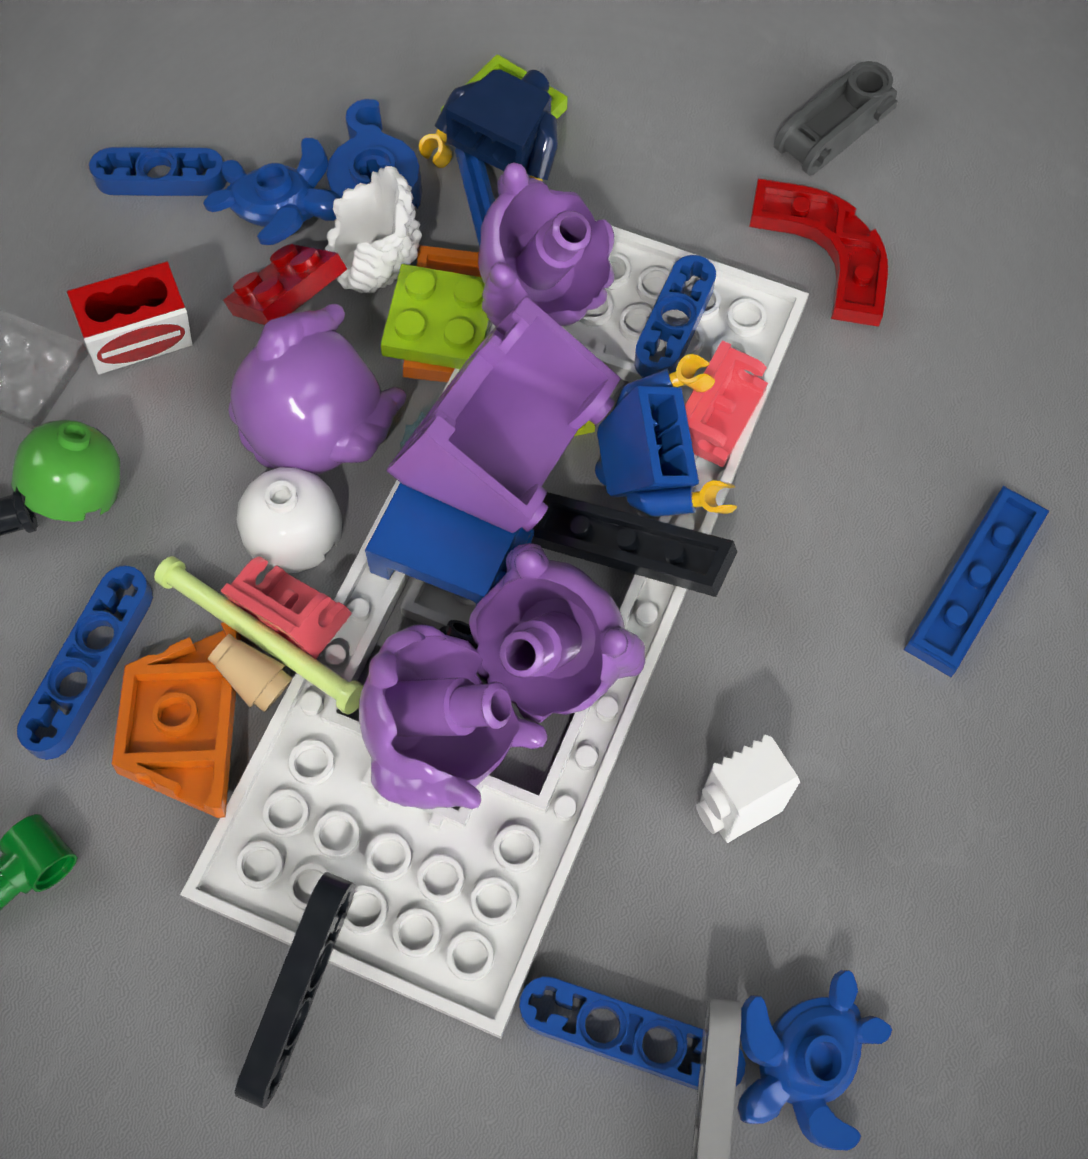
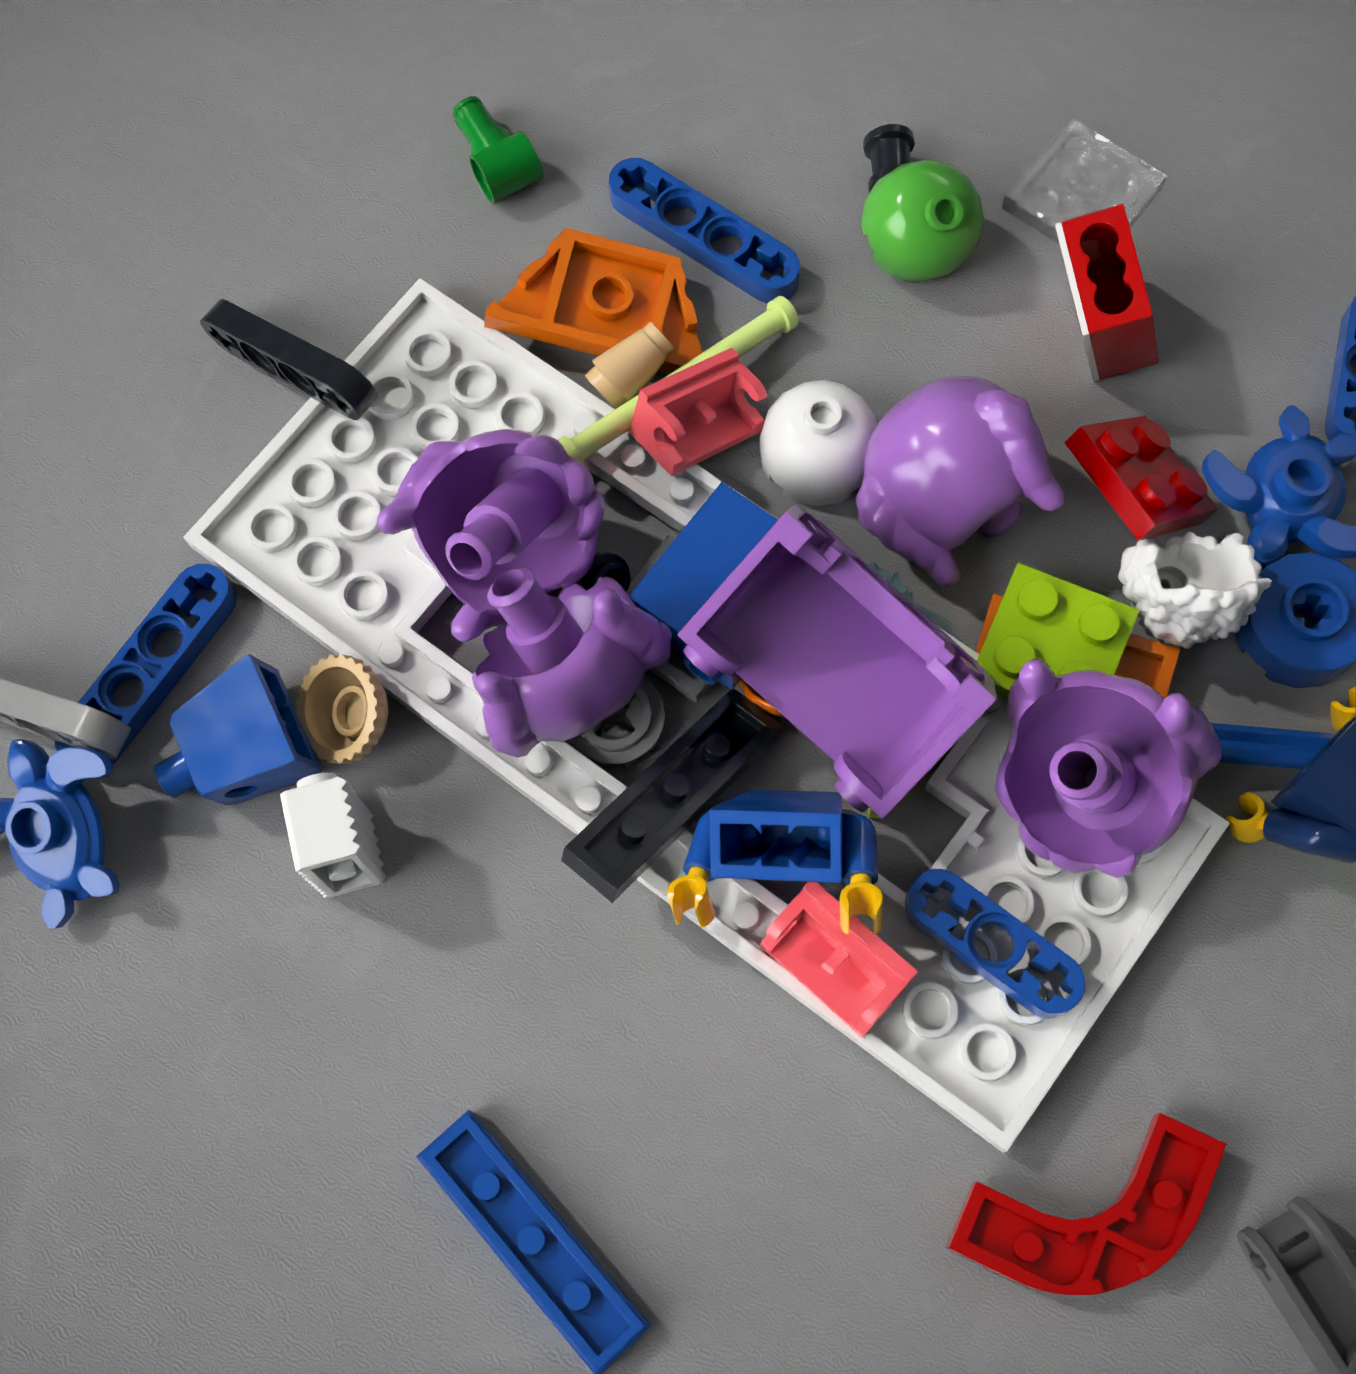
camera: 110 degrees right, 5 degrees up
(628, 832) = (342, 708): none -> tan hat
(682, 913) = (238, 738): none -> blue torso

